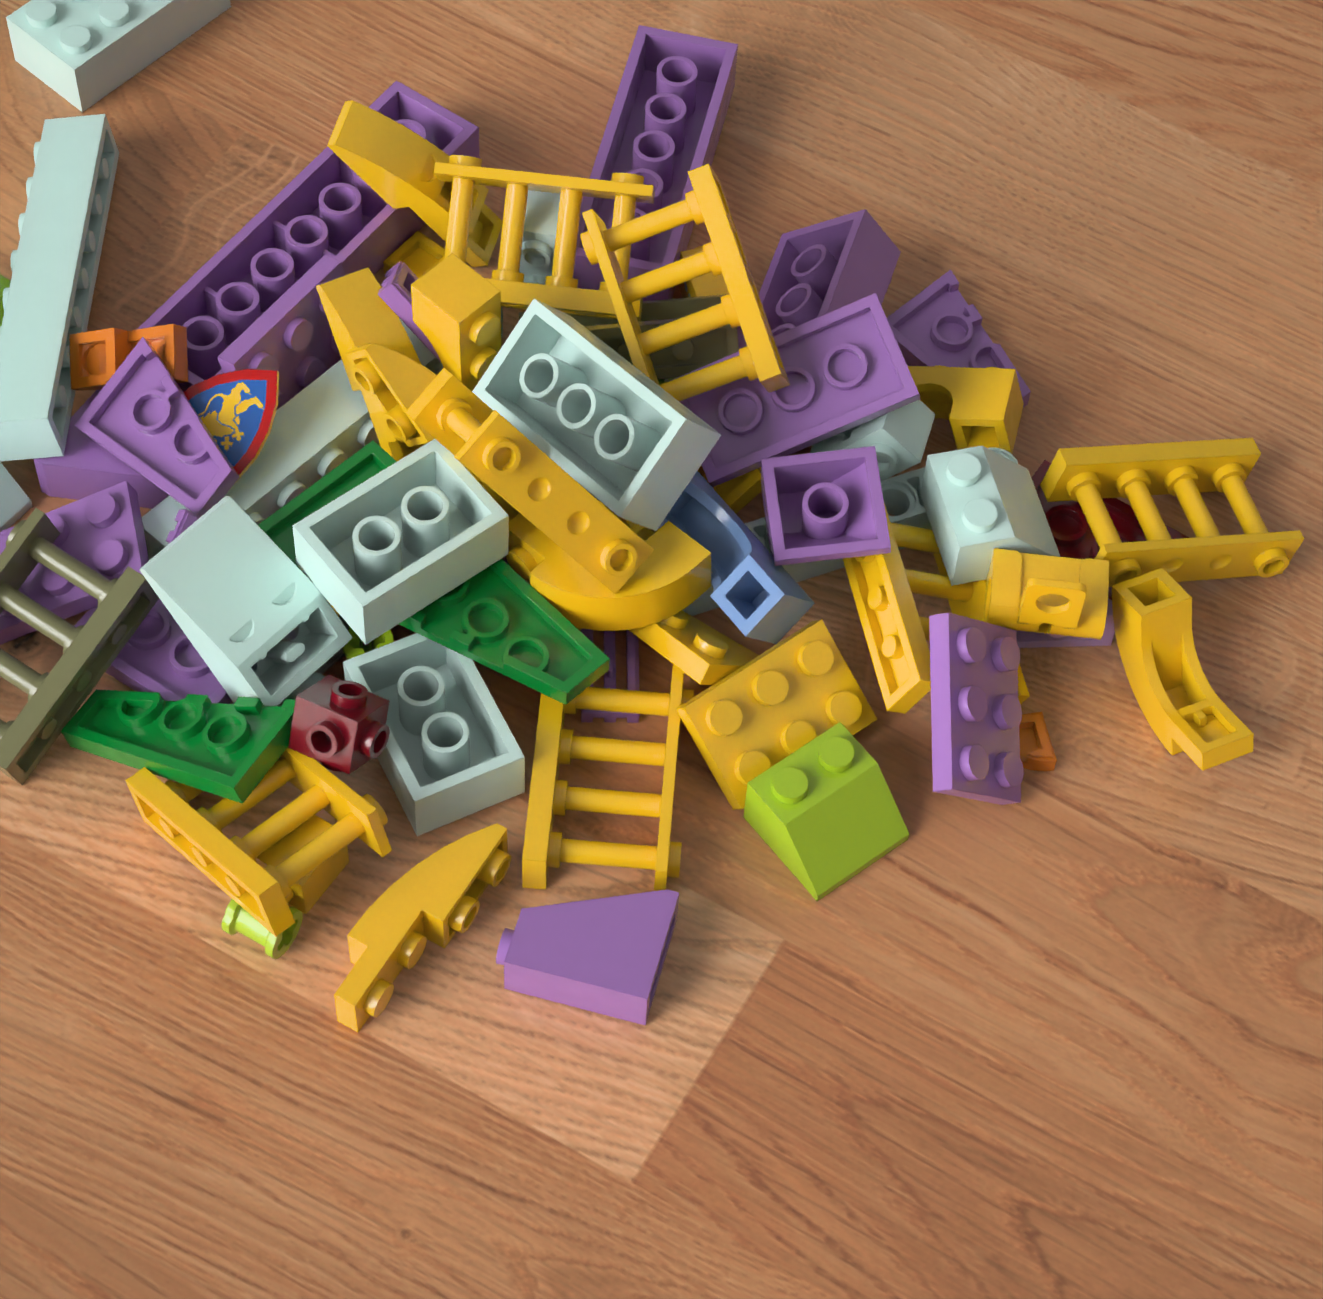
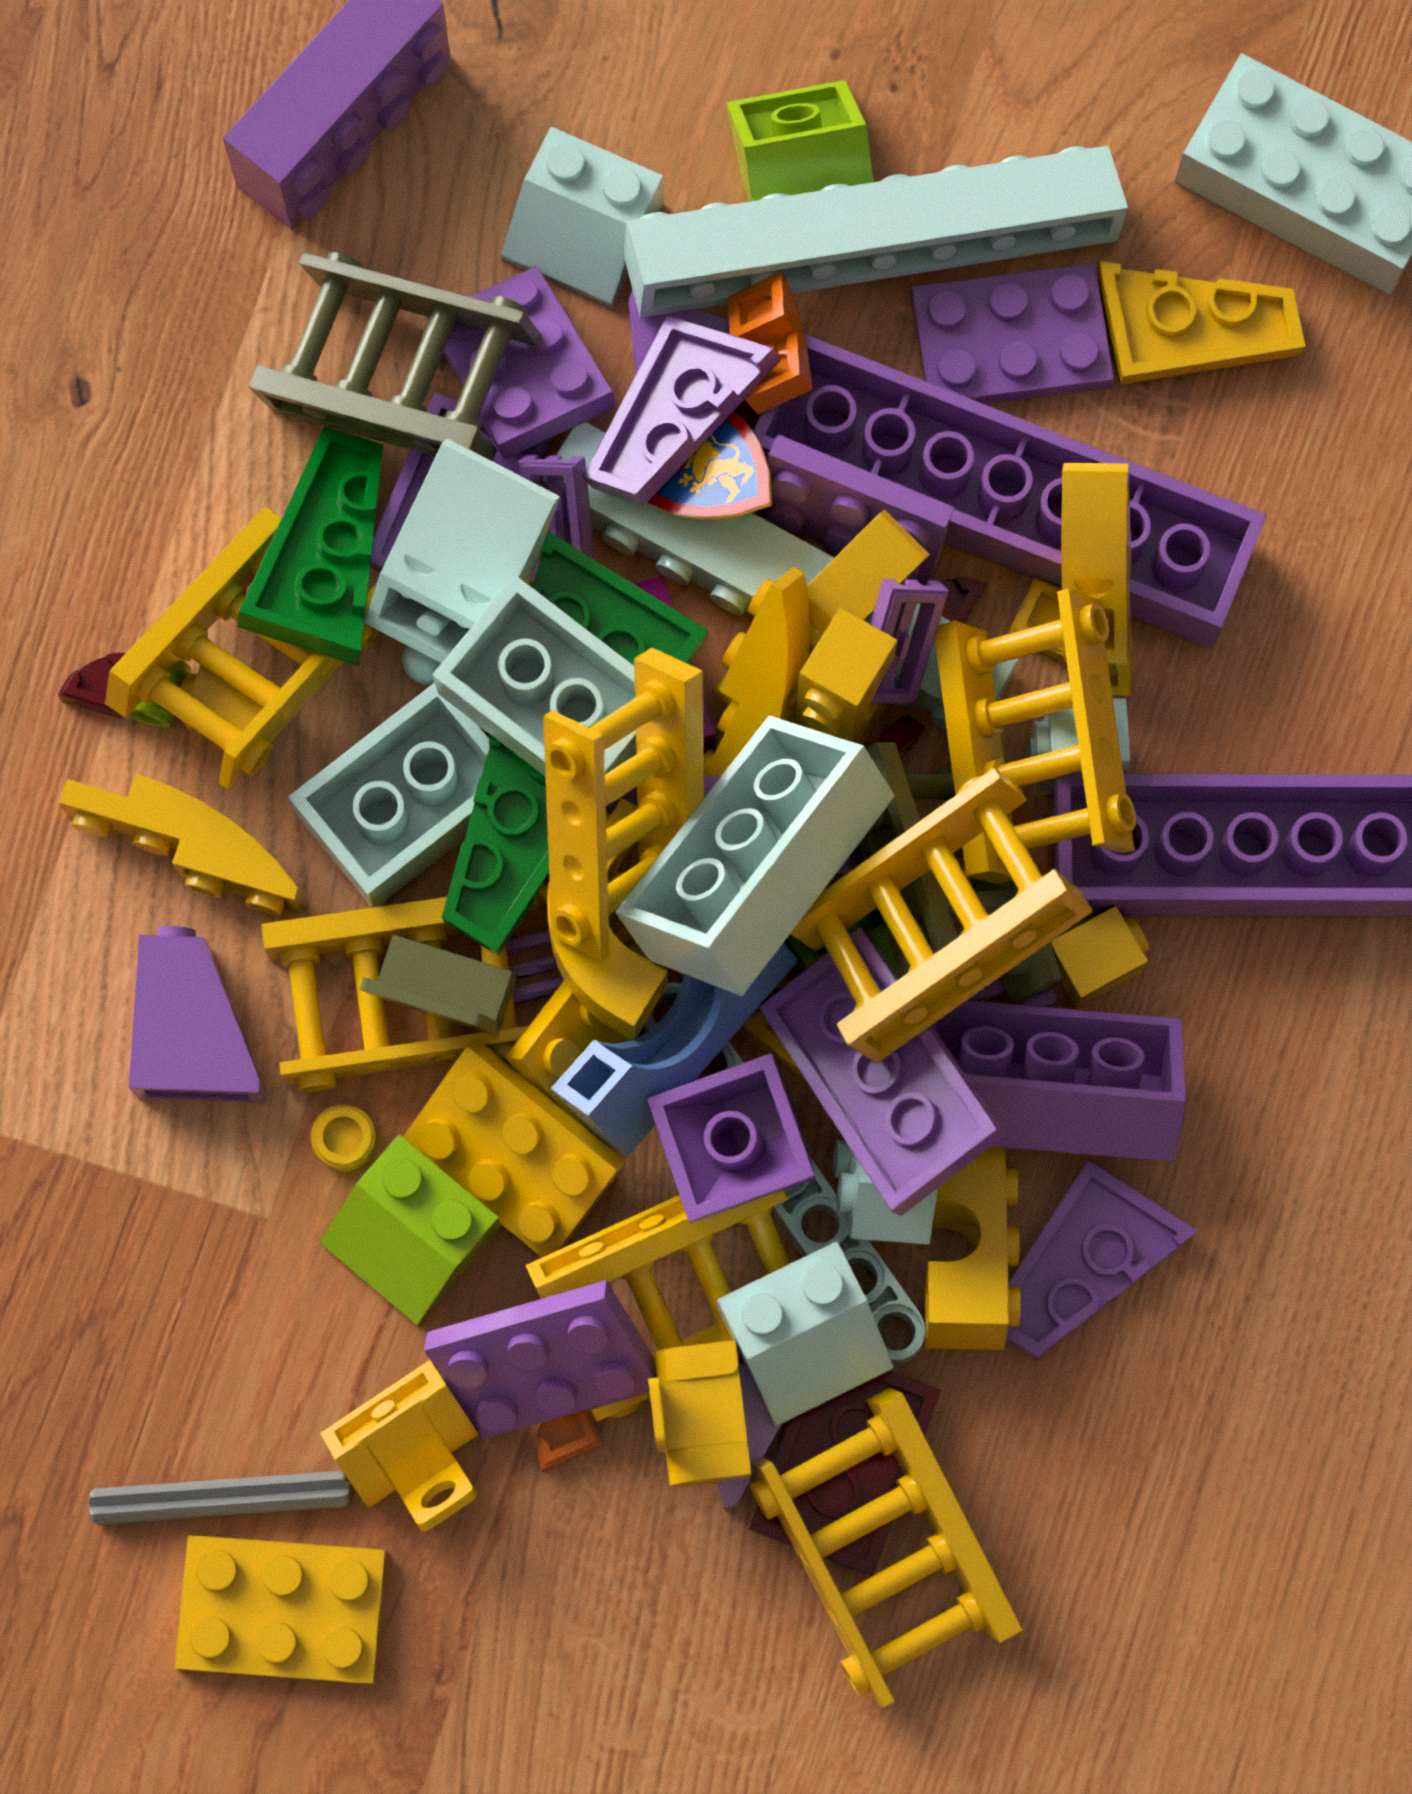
camera: 80 degrees right, 20 degrees up
(168, 231) = (1014, 334): none -> medium lavender plate
(210, 120) = (1189, 326): none -> yellow wing
(240, 972) = (89, 685): none -> dark red tile
(339, 724) = (342, 696): dark red brick -> none
(622, 721) = (443, 985): none -> olive panel
(726, 858) = (343, 1137): none -> yellow tile
(1021, 855) = (406, 1446): none -> yellow piece
(1036, 1023) = (219, 1497): none -> light grey axle
(1145, 994) = (281, 1609): none -> yellow plate
(1165, 674) = (660, 1584): yellow arch -> none

